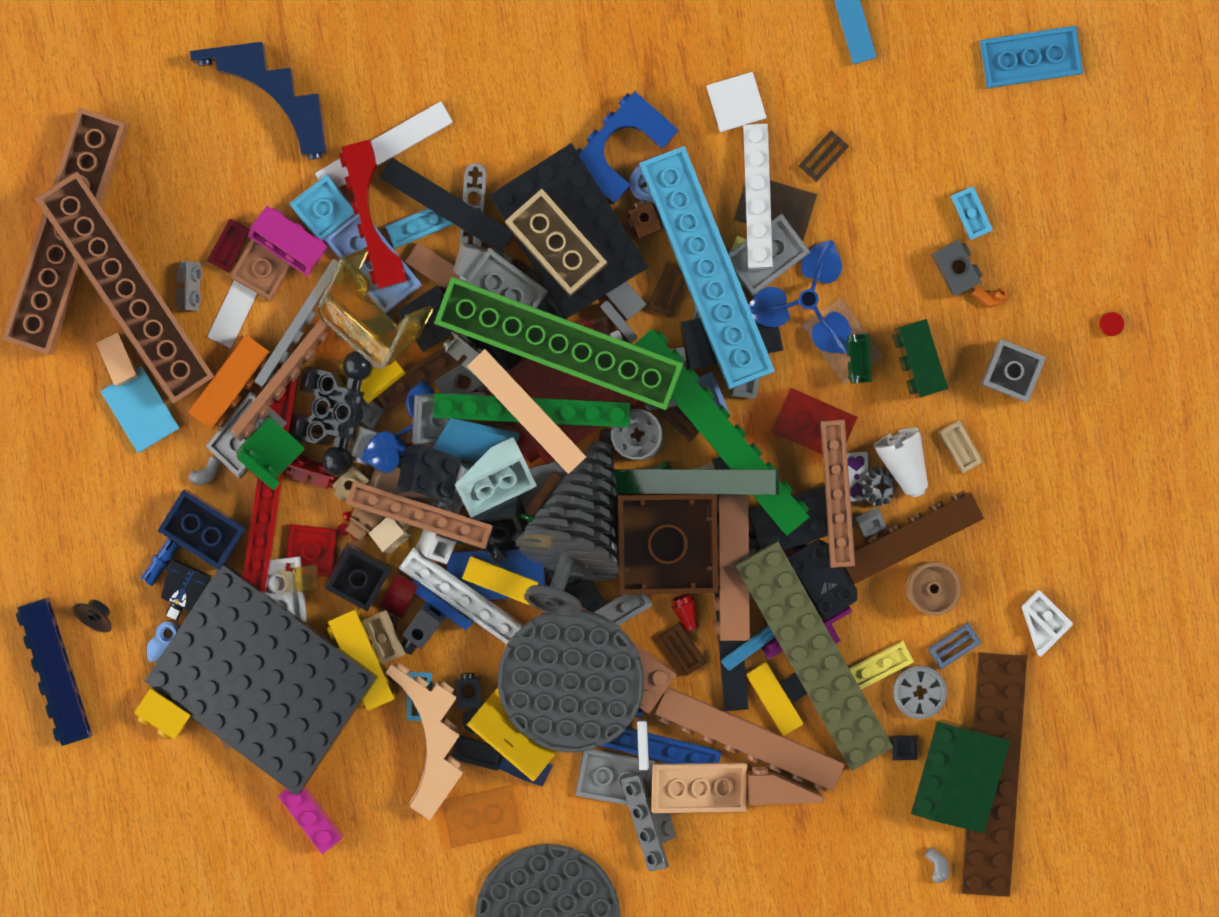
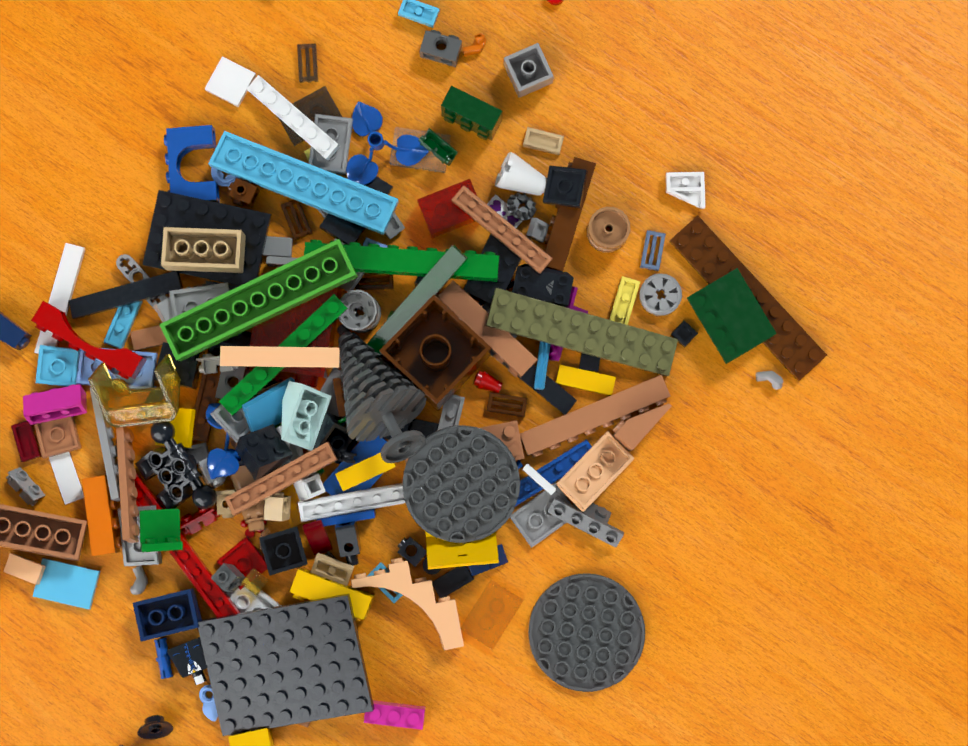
camera: 50 degrees left, 5 degrees down
(287, 552) = (228, 577): none -> dark grey brick
(934, 511) = (565, 186): none -> black tile

